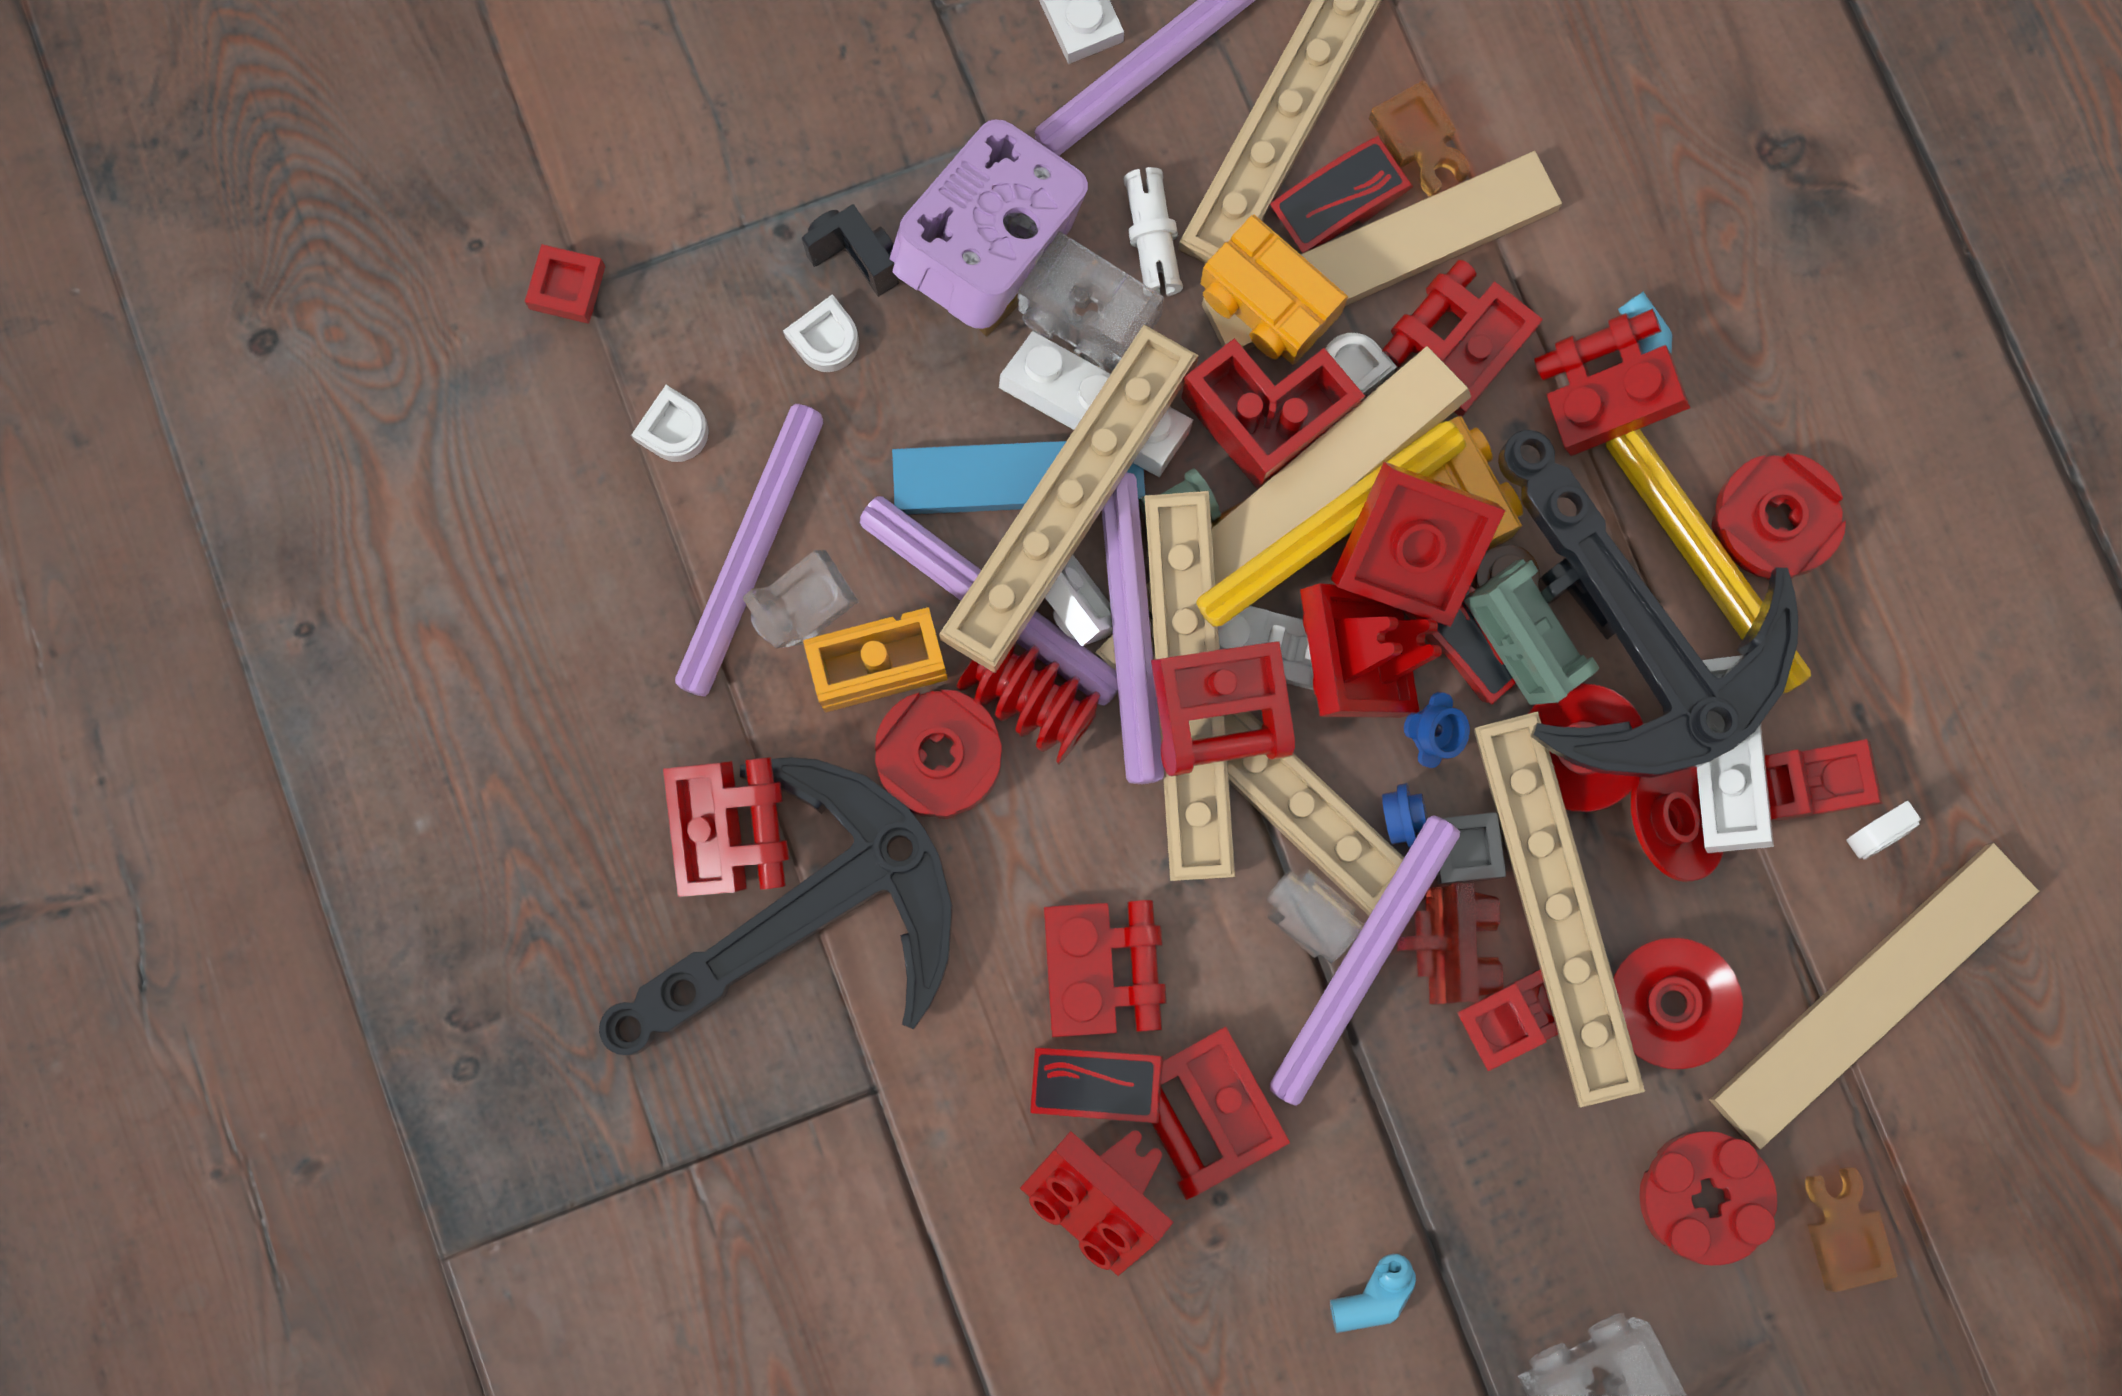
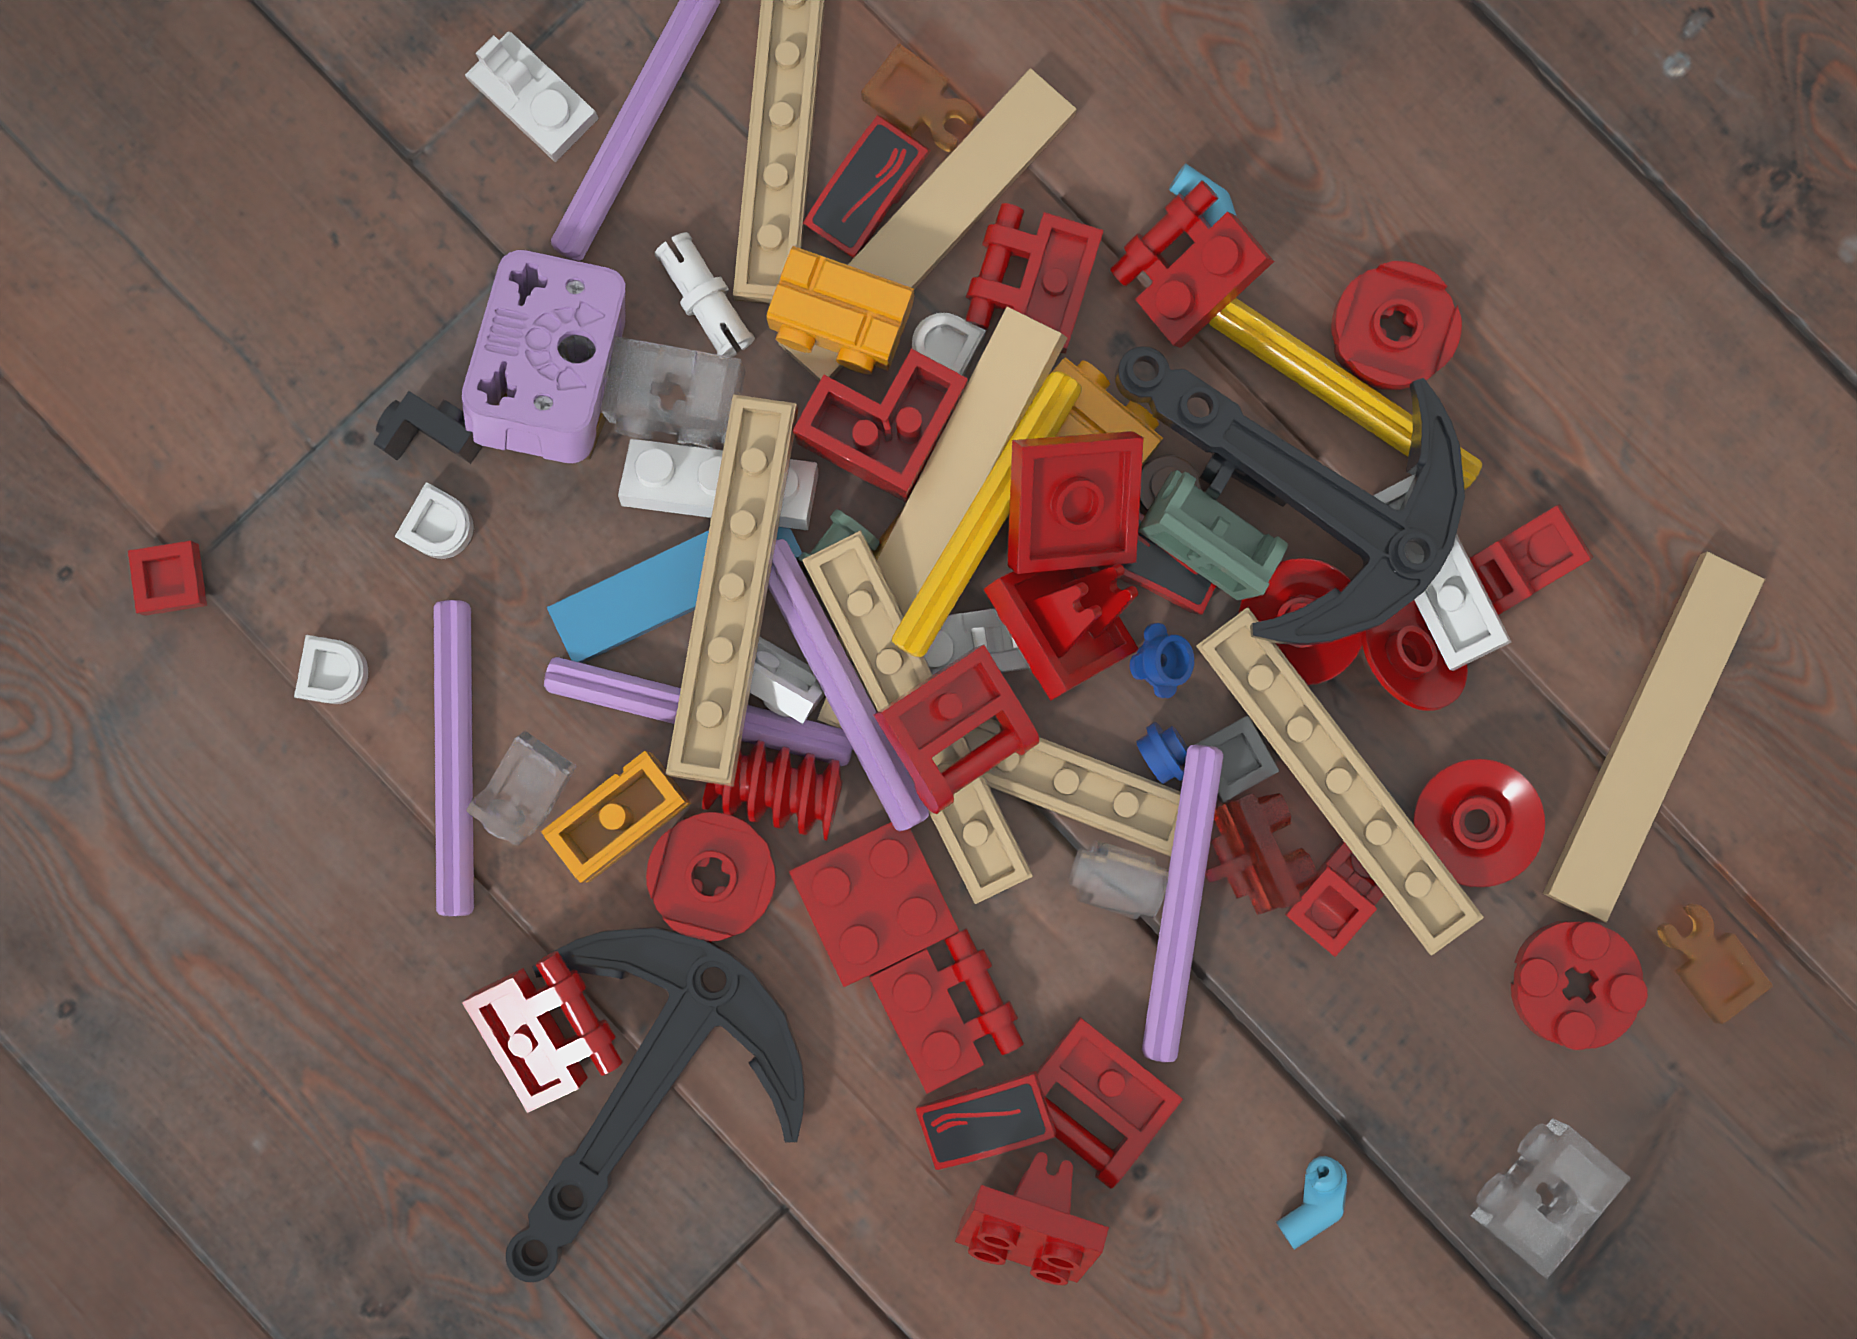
camera: 25 degrees left, 5 degrees up
(1077, 840) = (873, 902): none -> red plate
(1884, 831) = (1605, 583): white tile -> none

